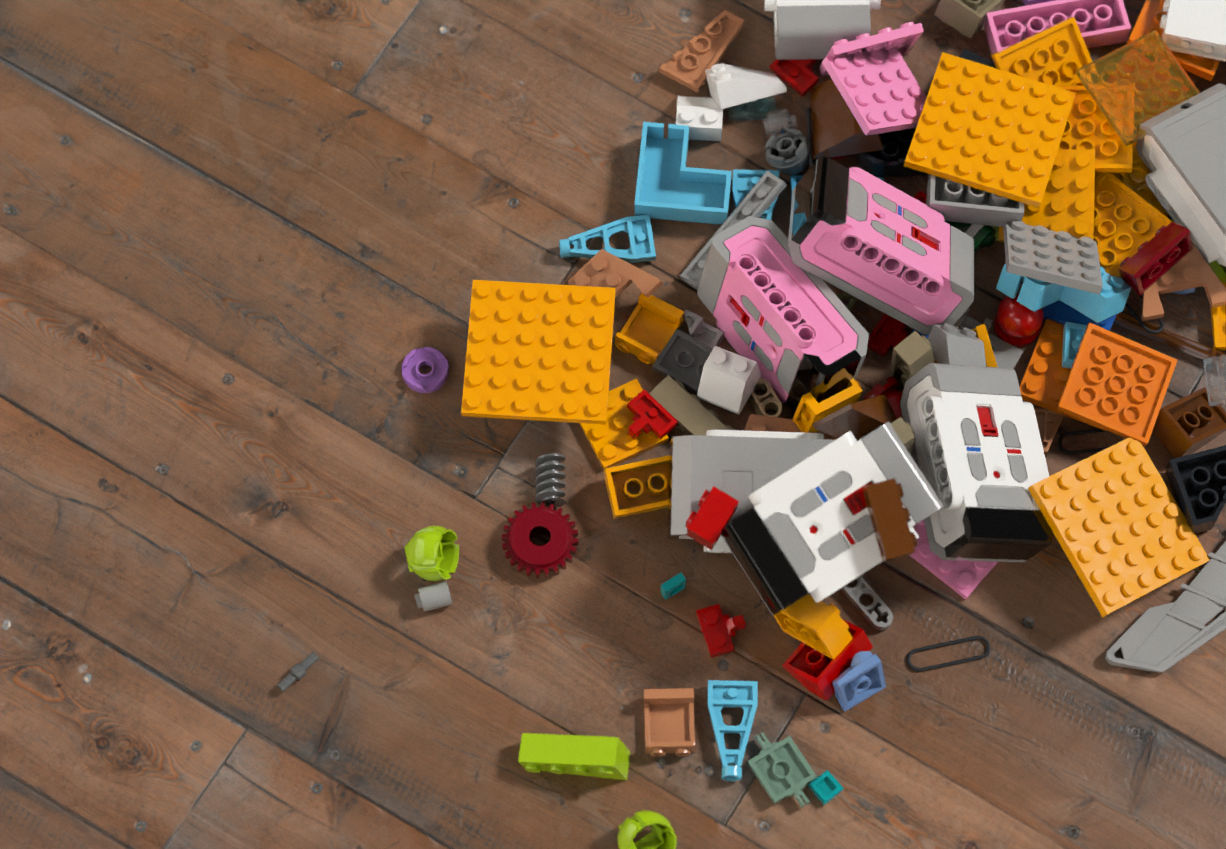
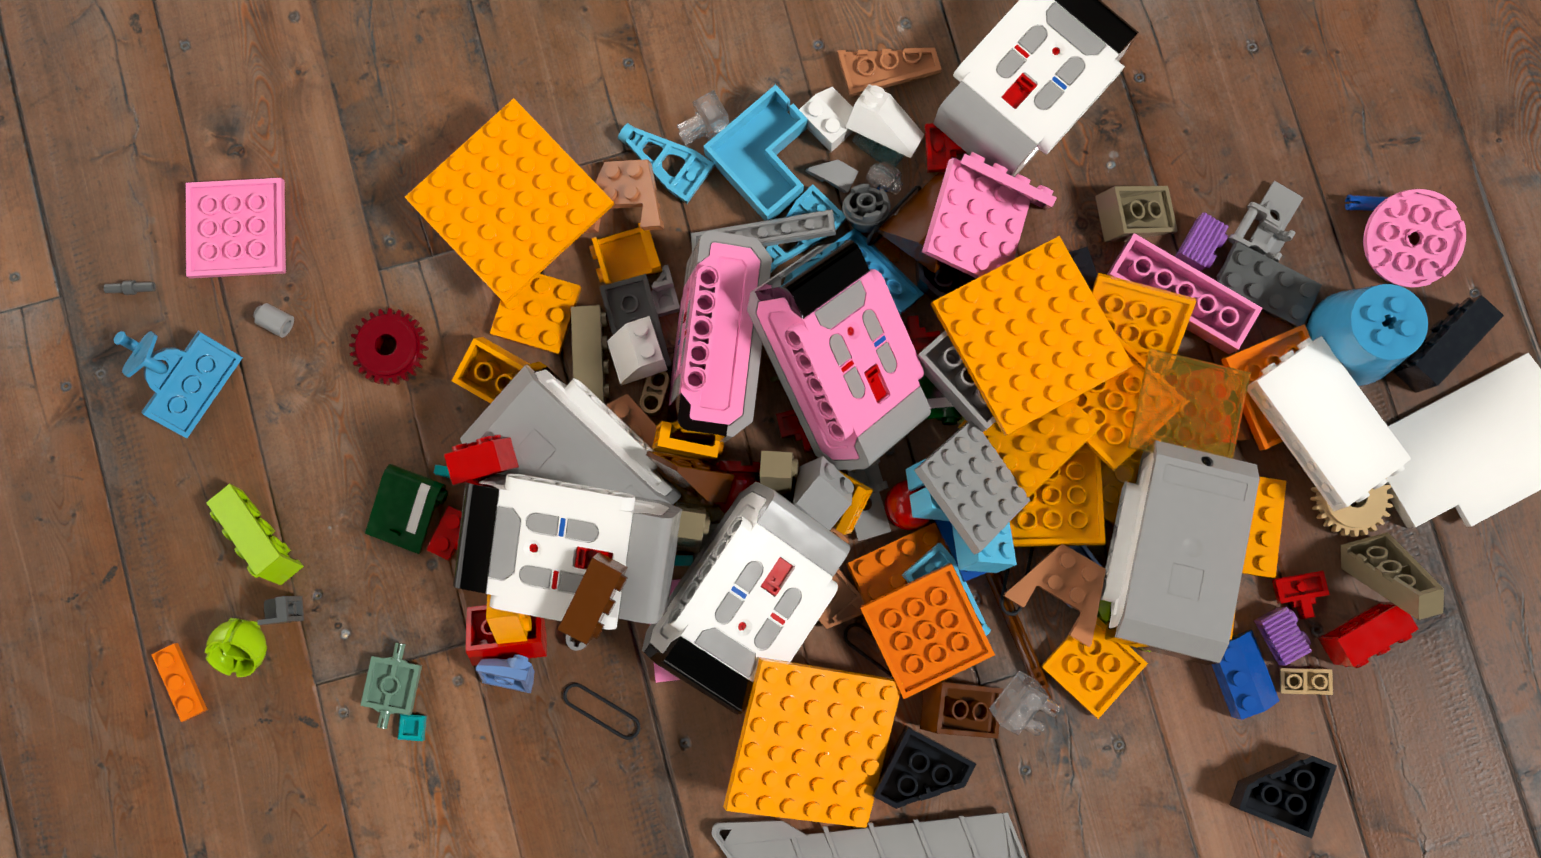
camera: 45 degrees right, 15 degrees up
(338, 559) = (235, 228): none -> bright pink plate
(417, 691) = (187, 382): none -> dark azure plate
(425, 382) = (427, 127): medium lavender tile -> none
(433, 553) = (296, 287): lime piece -> none
(549, 479) = (439, 307): dark grey piece -> none
(616, 187) = (708, 119): none -> clear brick
(649, 416) = (554, 325): red hinge -> none
(652, 785) = (282, 610): none -> dark grey panel
(664, 637) = (405, 505): none -> dark green door
(669, 721) = (346, 573): nougat panel -> none
(738, 695) = (411, 594): medium azure plate -> none
(740, 149) = (835, 173): none -> light grey slope
(1156, 257) = (1058, 559): dark red slope -> none

